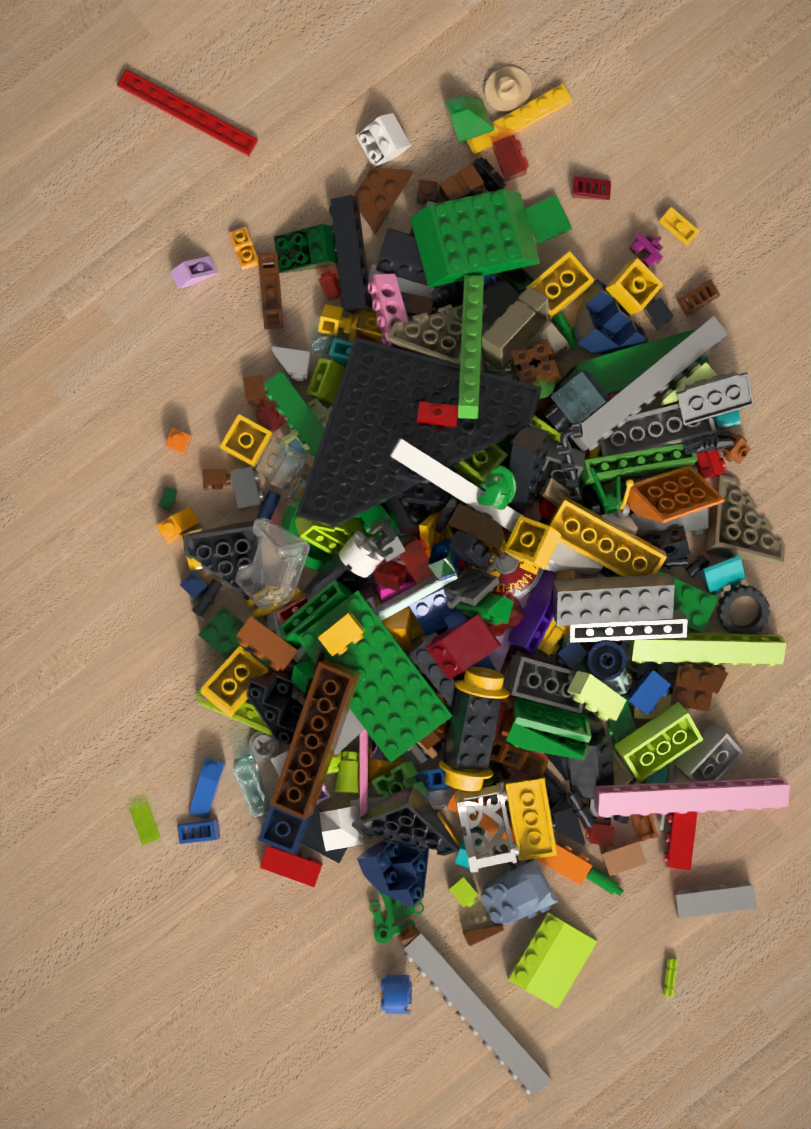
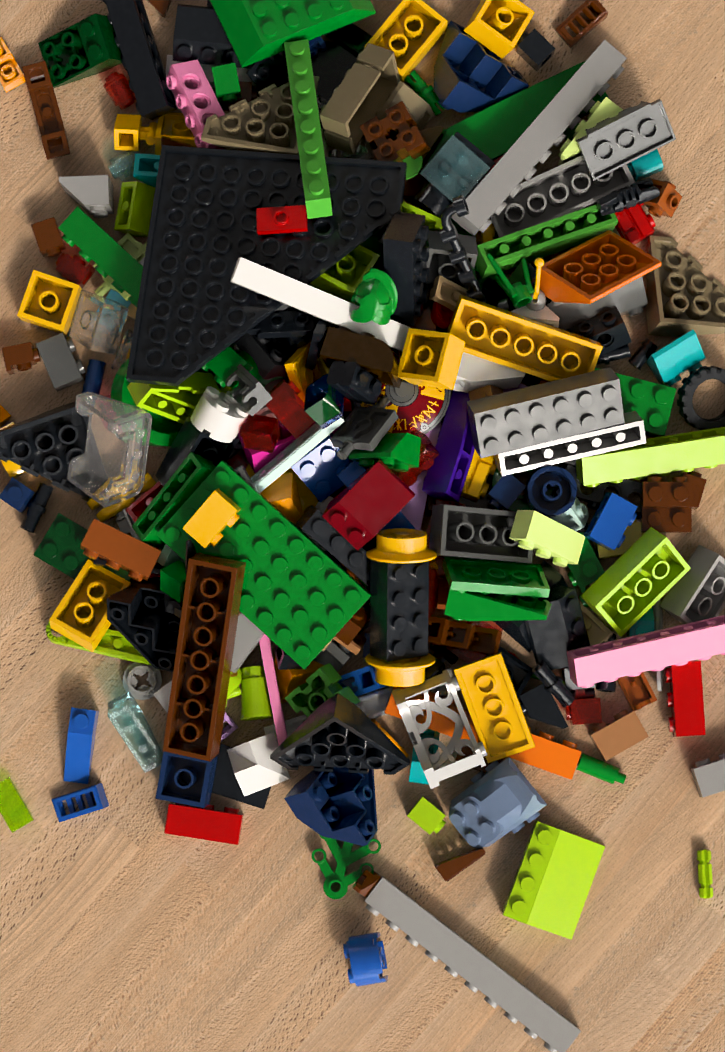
camera: 10 degrees left, 0 degrees up
(414, 296) = (226, 83): none -> green brick

